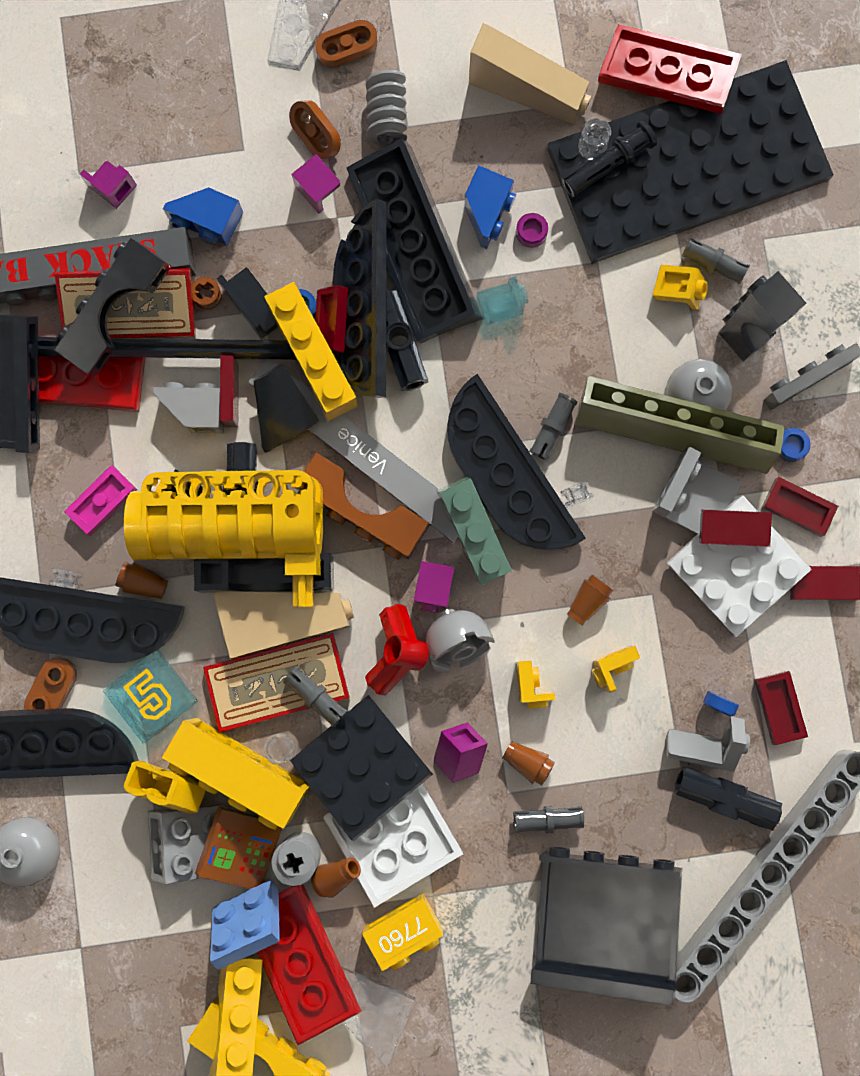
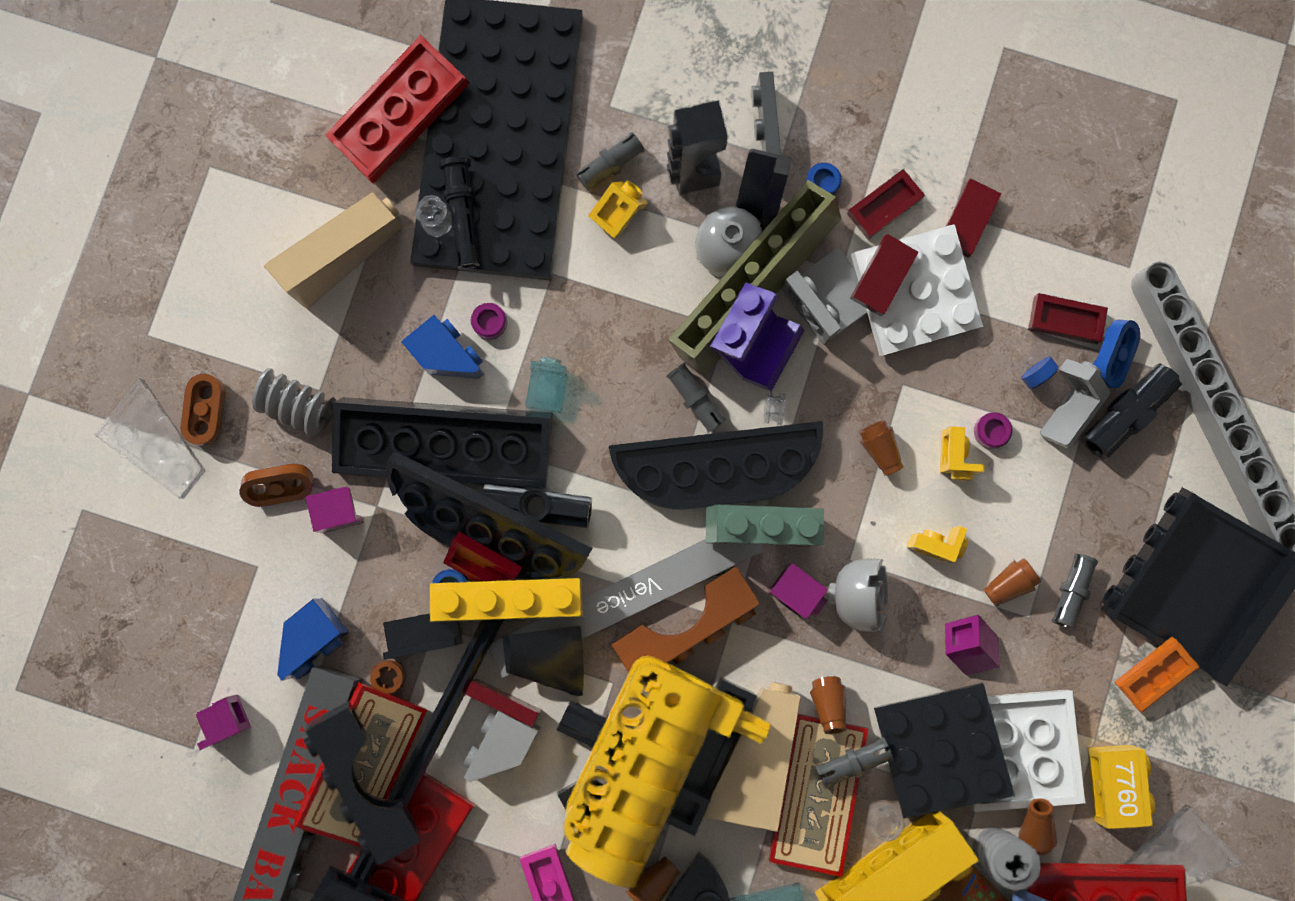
camera: 65 degrees left, 0 degrees up
(354, 655) = (830, 703): none -> dark orange cone
(400, 653) = (851, 656): red piece -> none
(512, 921) = (1156, 674): none -> orange plate
(627, 447) = (756, 339): none -> dark purple panel
(651, 688) = (993, 430): none -> magenta tile
(761, 392) = (763, 185): none -> black panel
(772, 762) = (1118, 351): none -> blue plate

